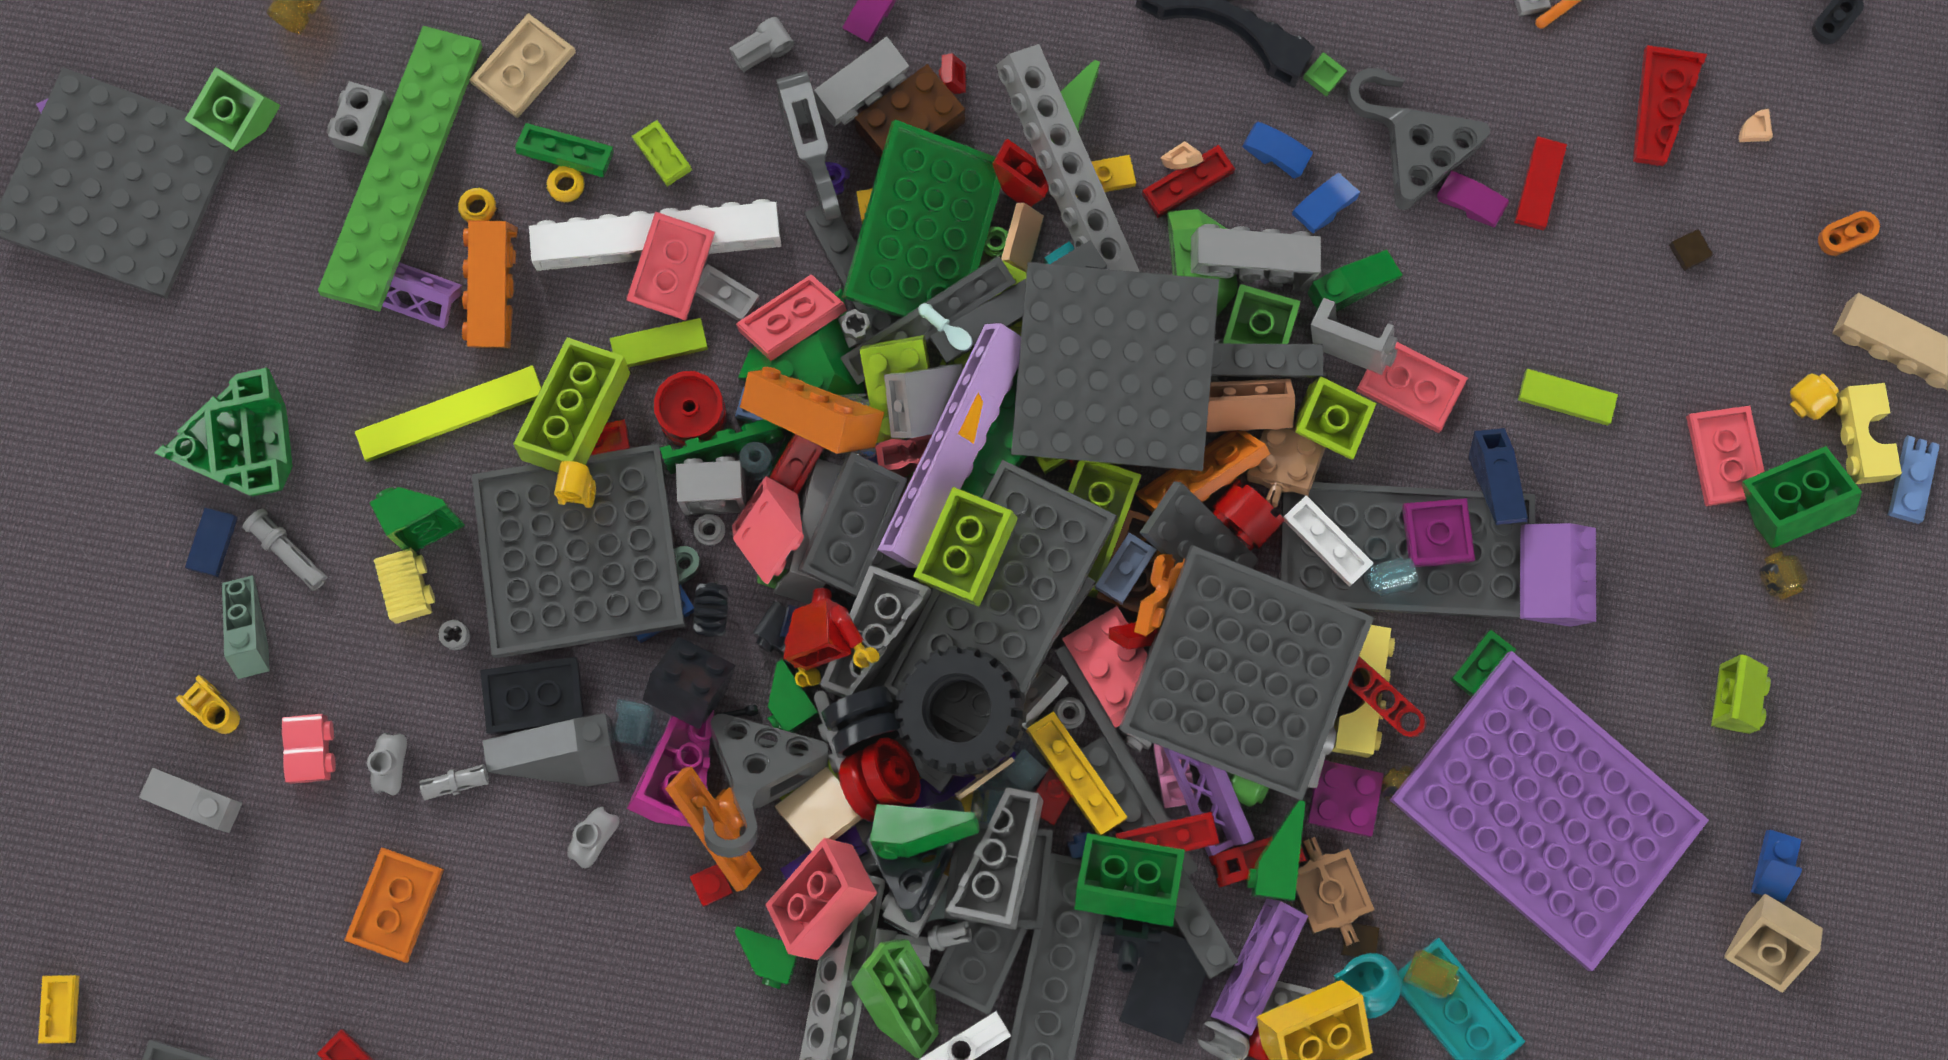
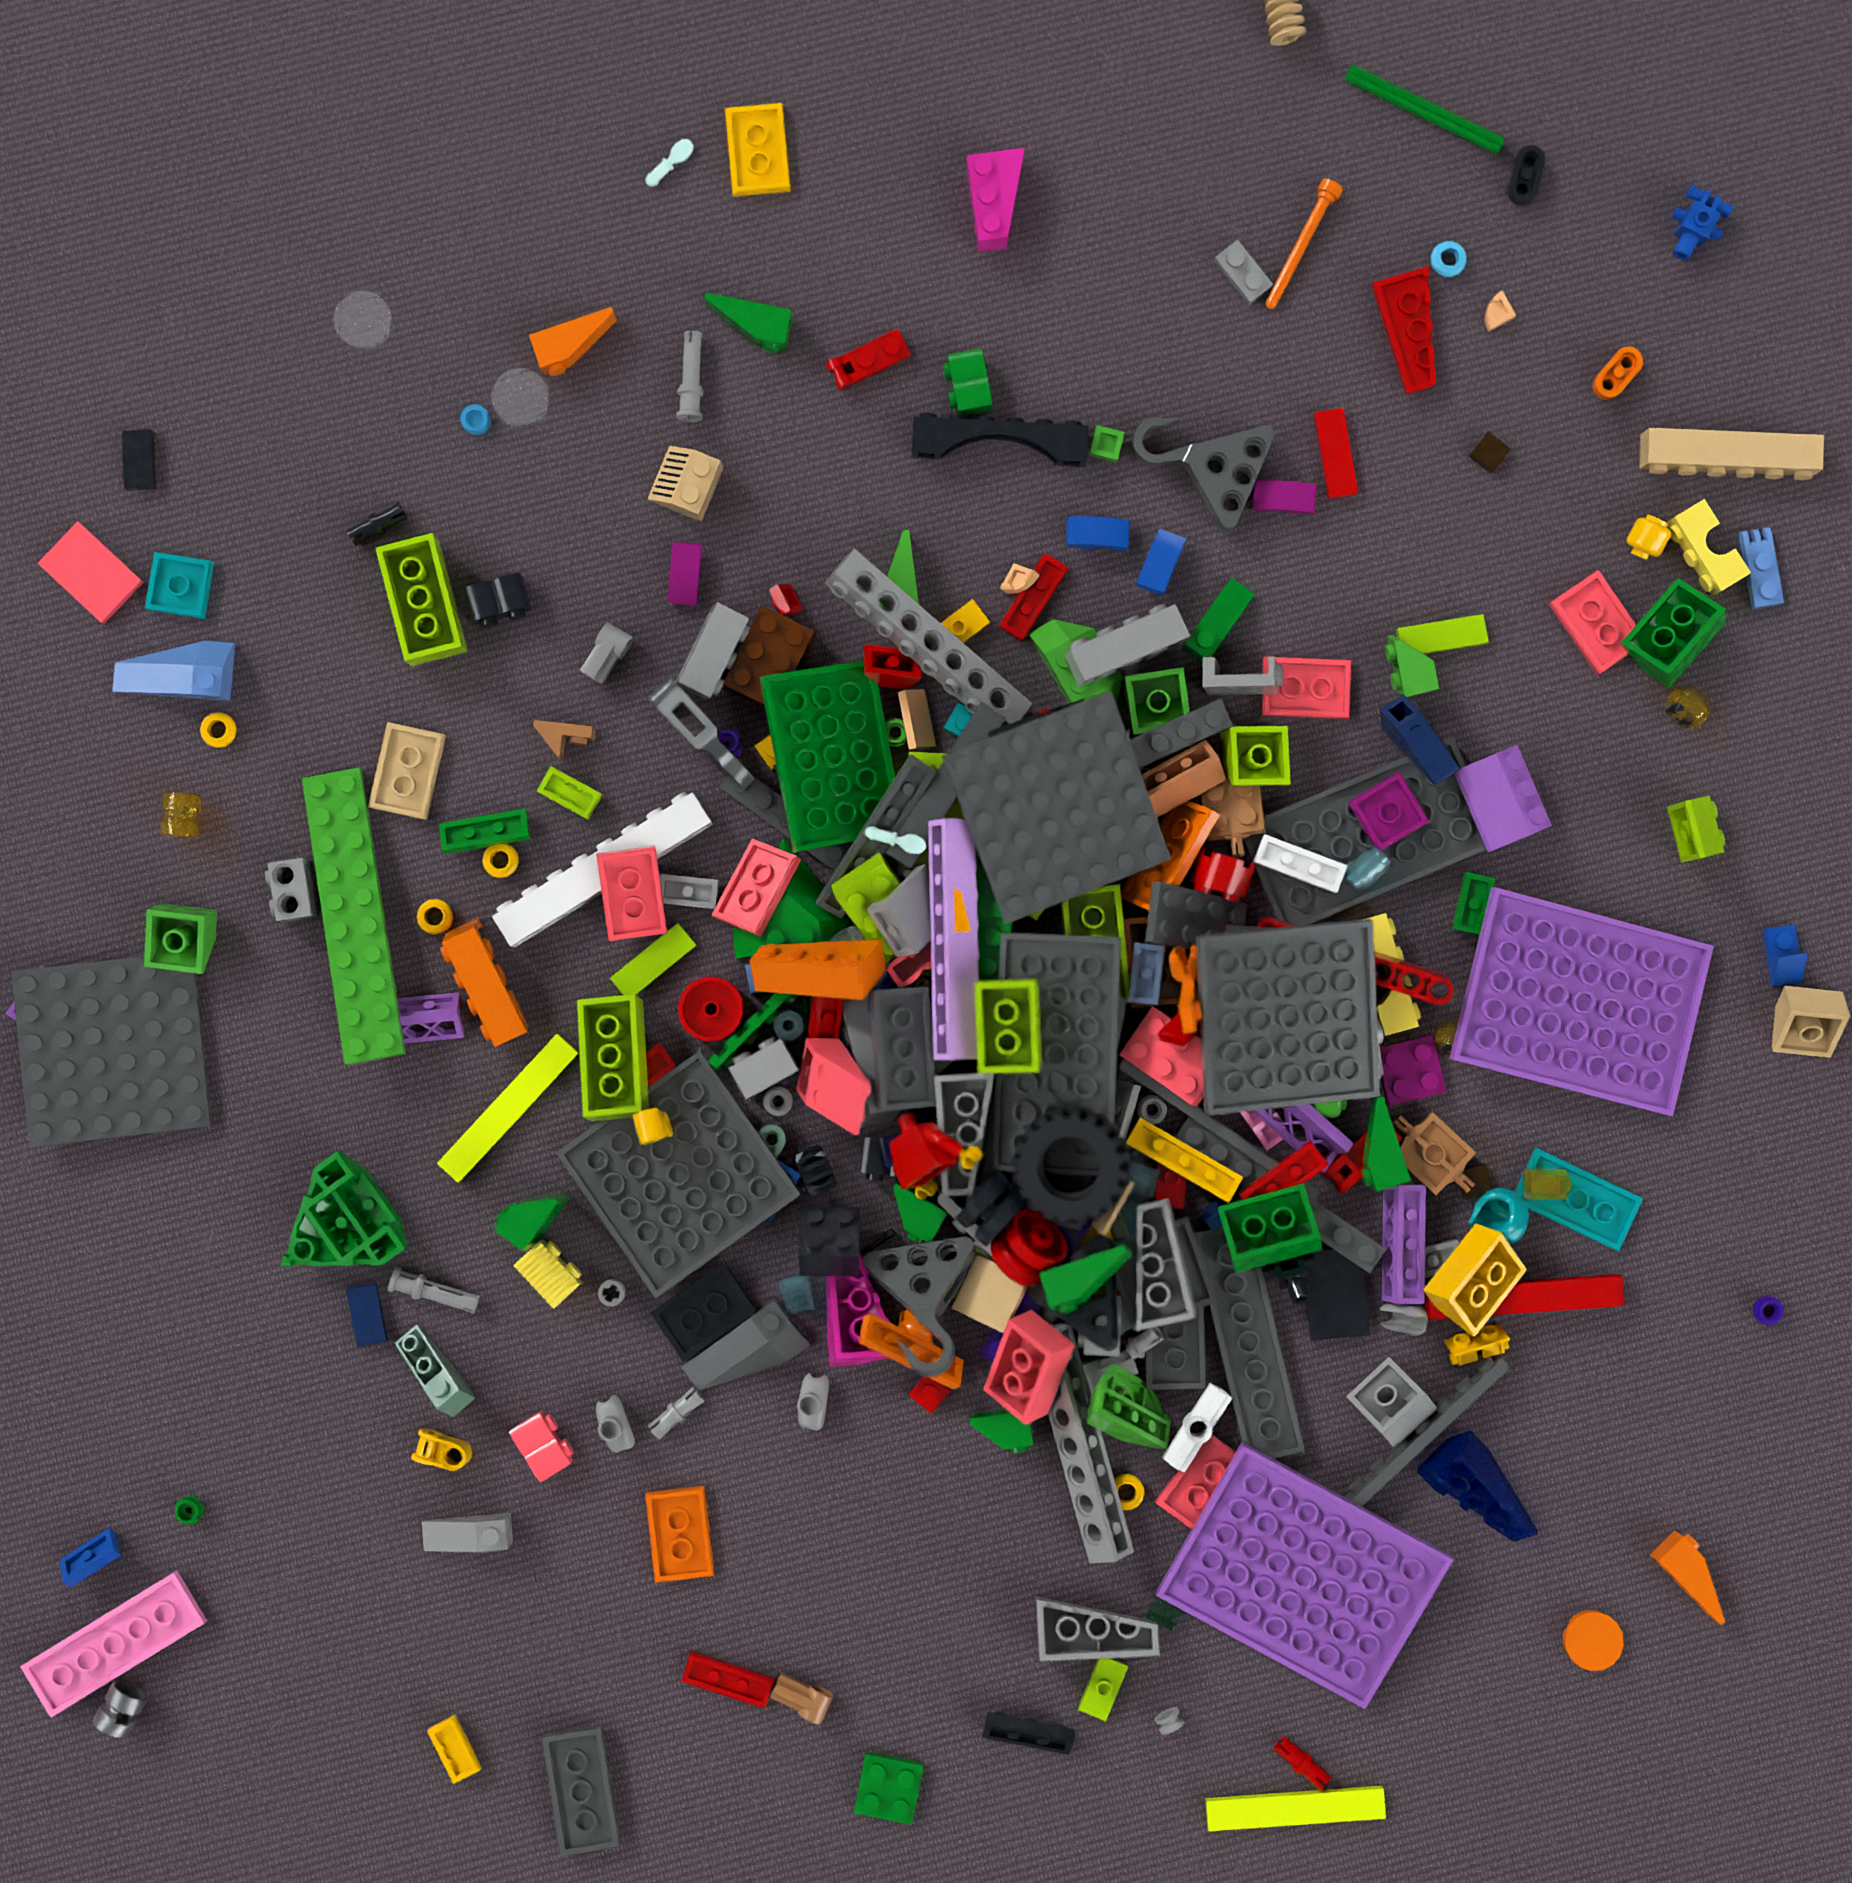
camera: 30 degrees left, 10 degrees up
(680, 95) = (556, 734): none -> medium nougat slope
(855, 327) = (816, 870): light grey piece -> none
(1524, 408) = (1412, 669): none -> bright green slope
(1724, 68) = (1451, 247): none -> medium azure piece

